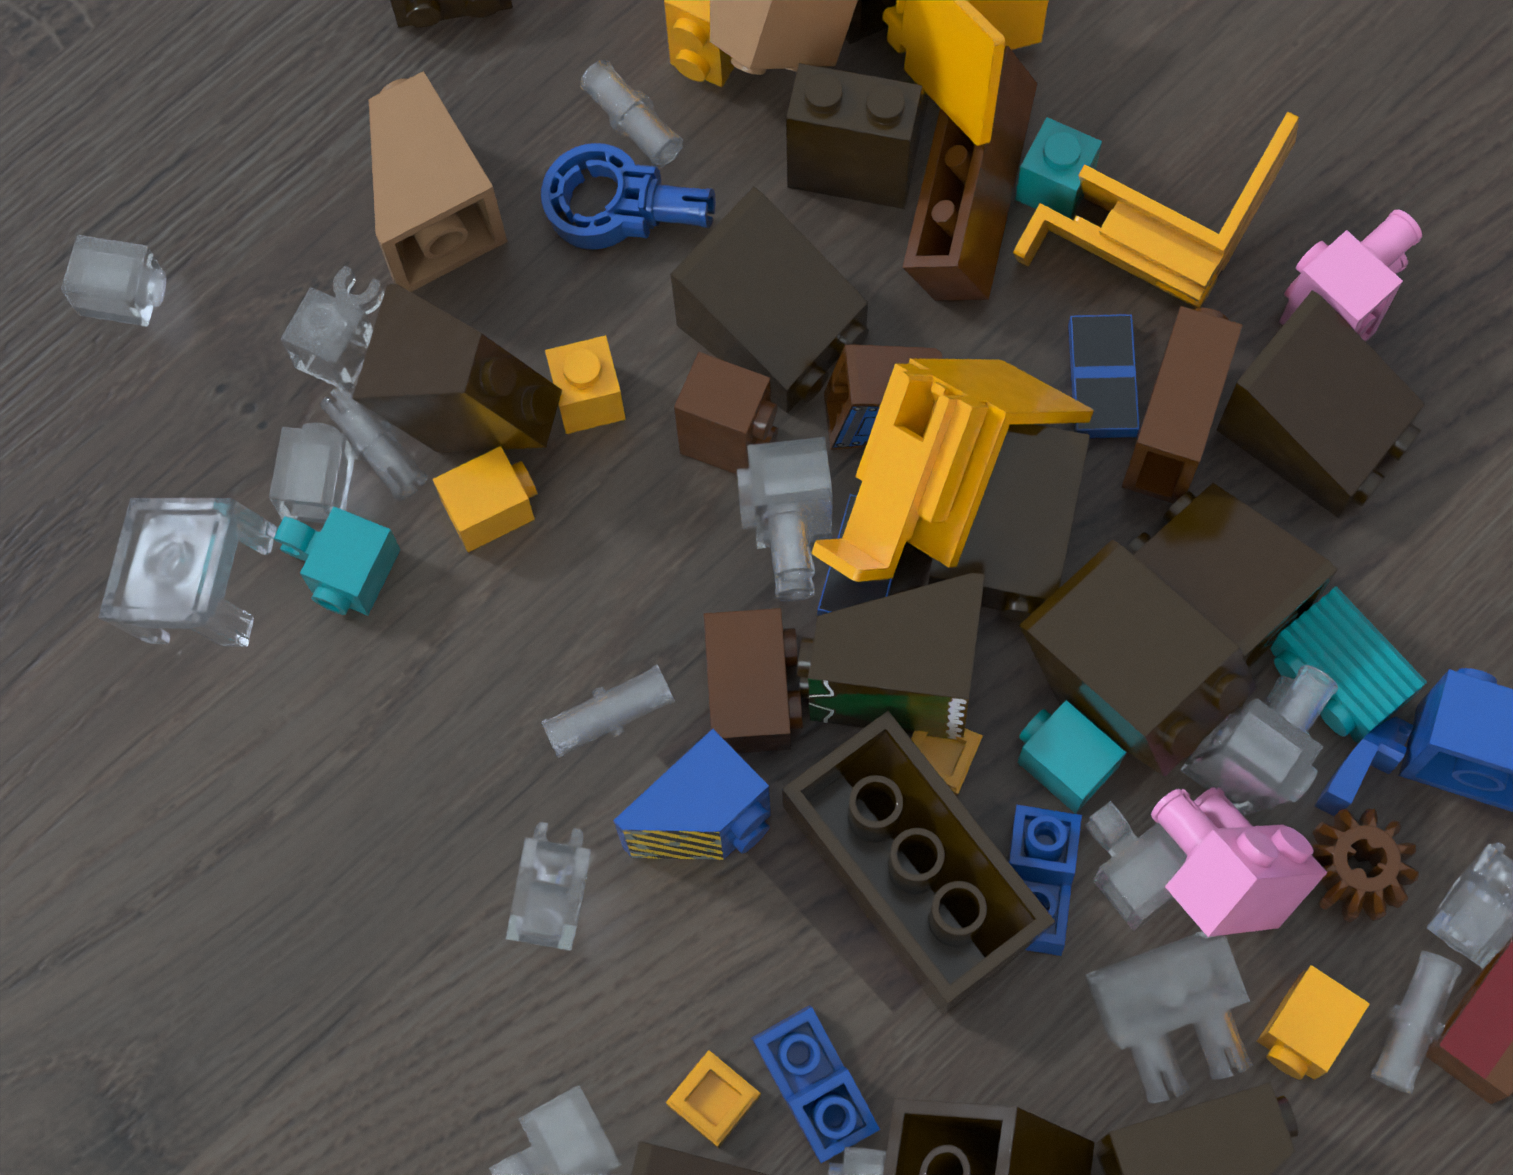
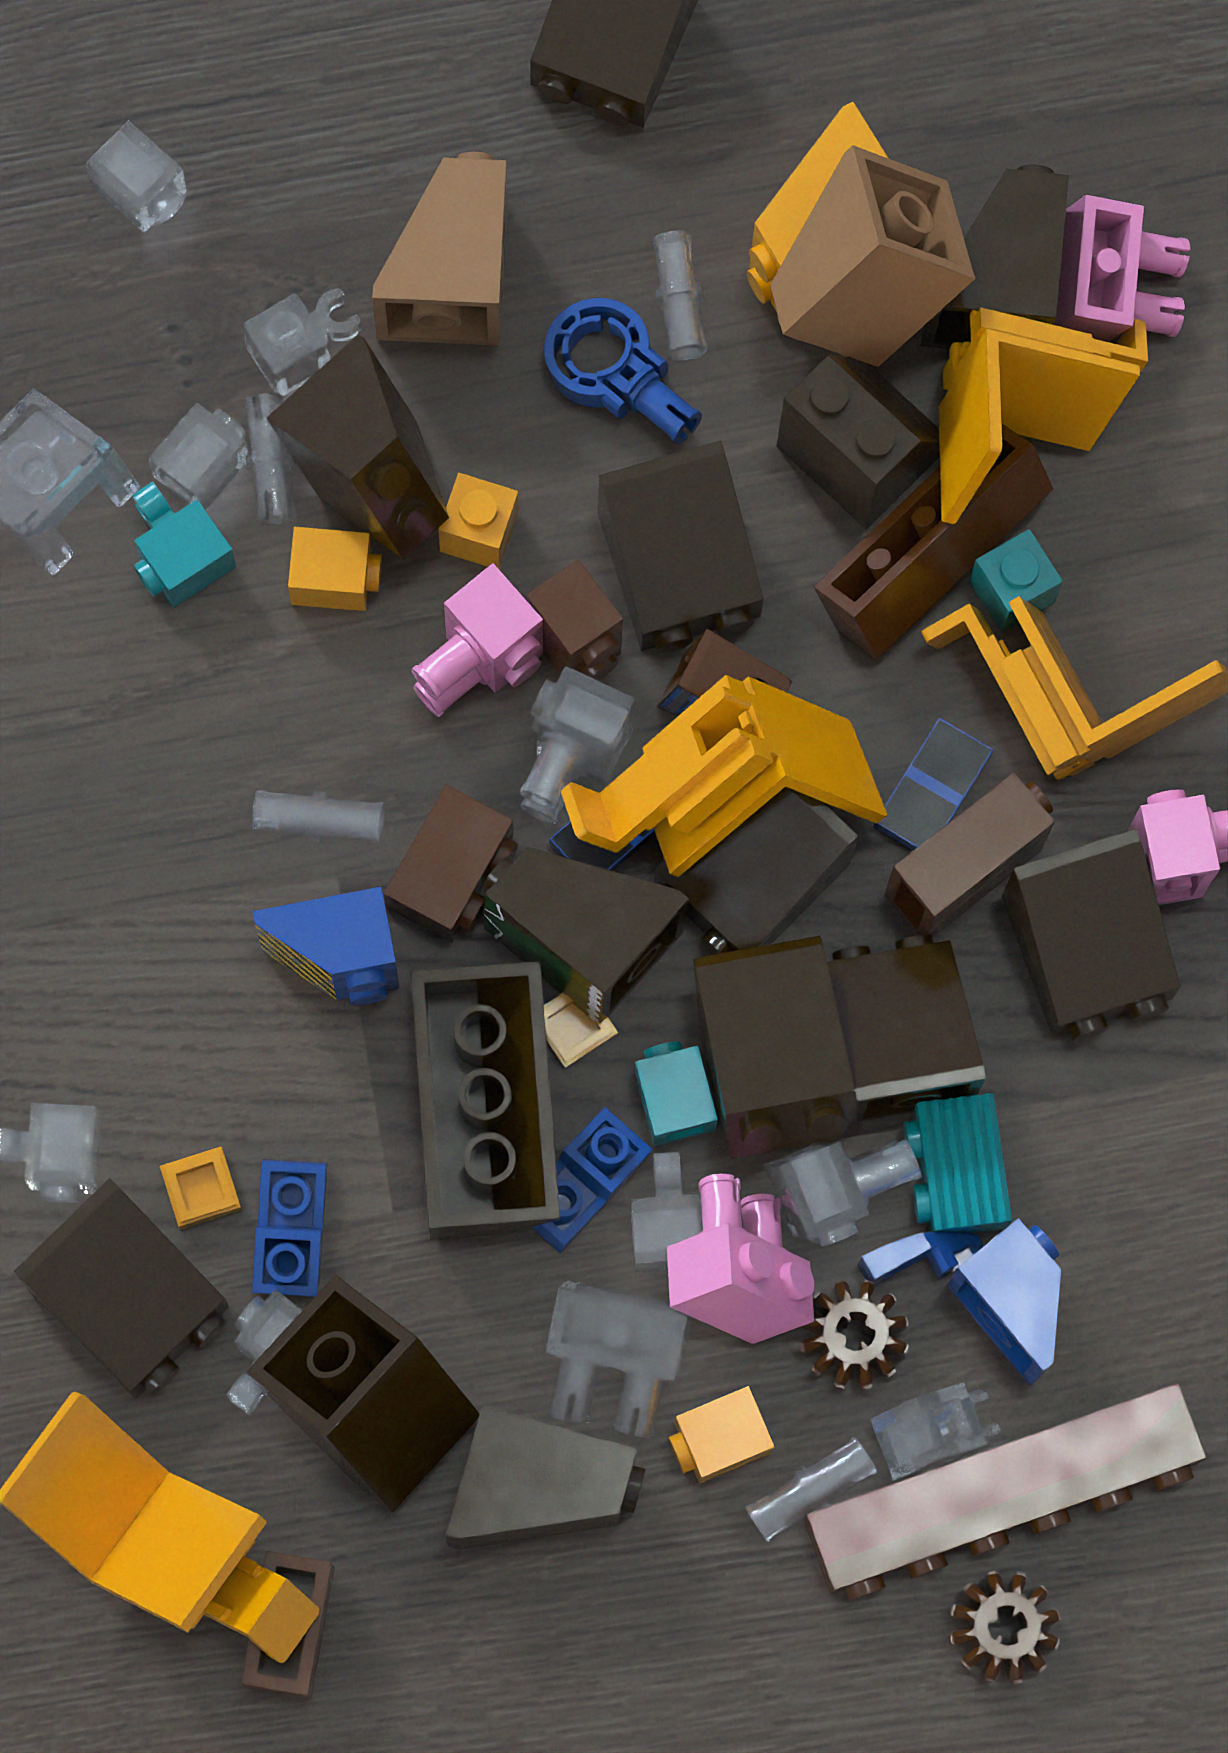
camera: 25 degrees right, 5 degrees up
(549, 890) = (172, 934): clear brick -> none
(659, 474) = (491, 641): none -> bright pink brick

